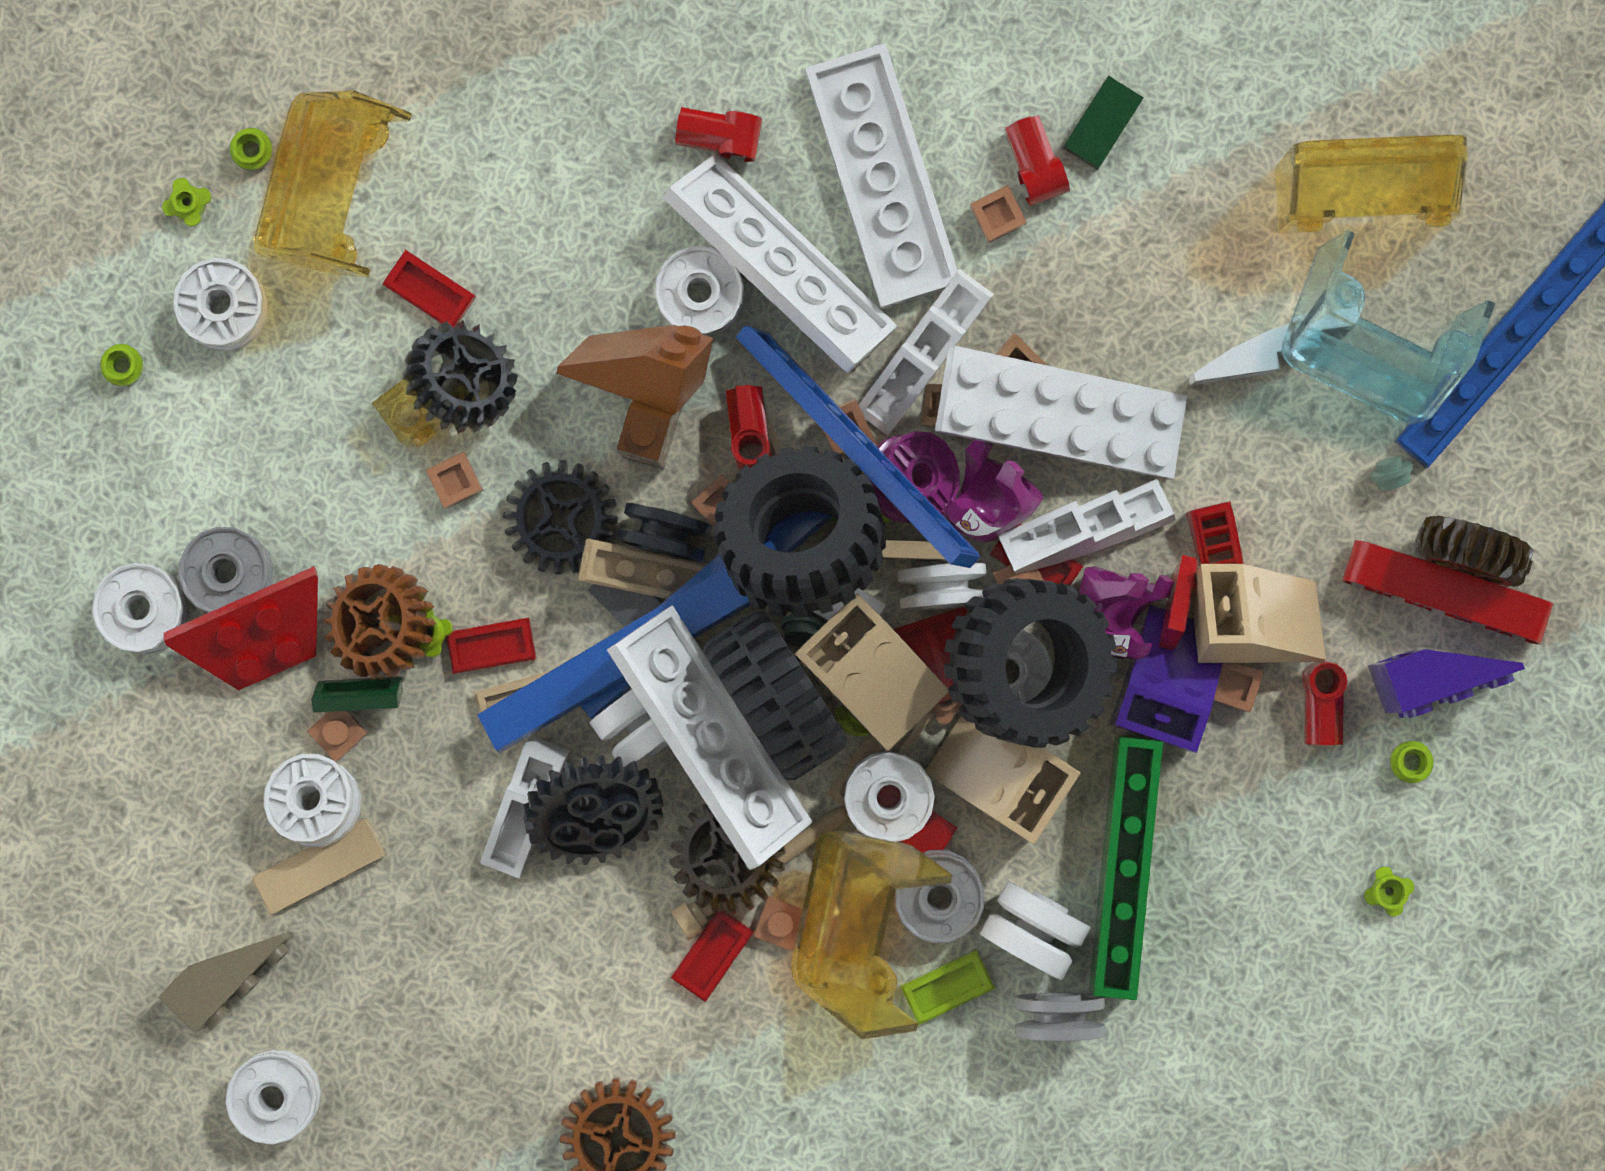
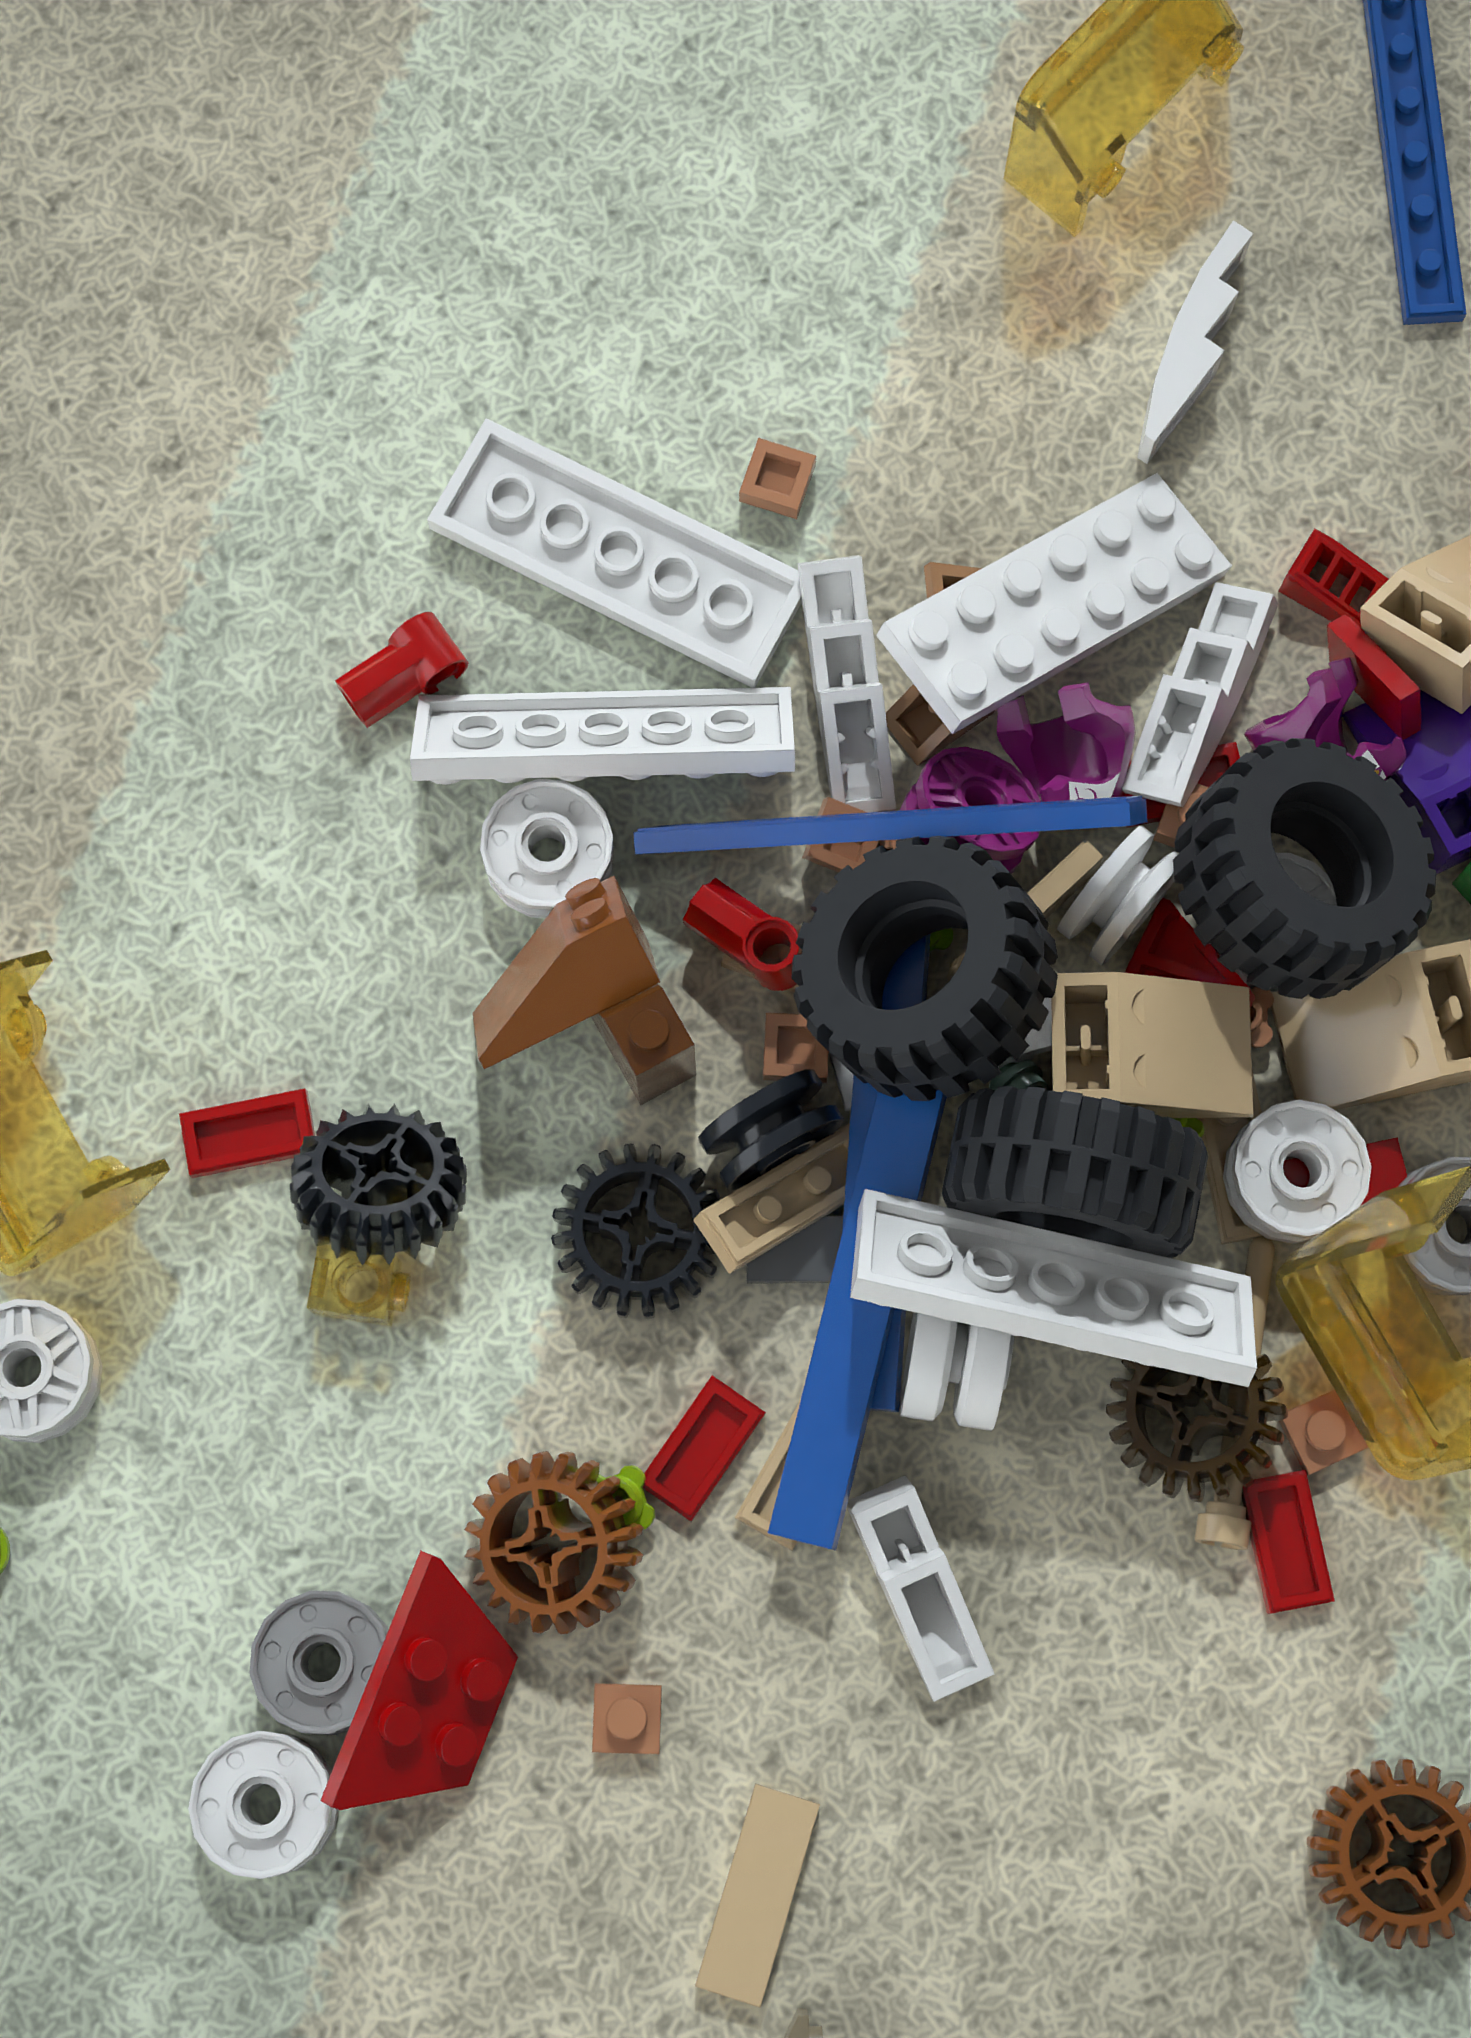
camera: 50 degrees left, 10 degrees down
(287, 796) = (637, 1823): white wheel -> none
(357, 694) = (608, 1651): dark green tile -> none
(454, 480) = (481, 1306): nougat plate -> none
(593, 810) = (1004, 1505): black gear -> none
(1037, 165) = (772, 395): red piece -> none
(1103, 122) = (788, 293): dark green tile -> none
(1366, 360) = (1297, 252): clear light blue windscreen -> none
(1391, 473) = (1438, 351): sand green plate -> none

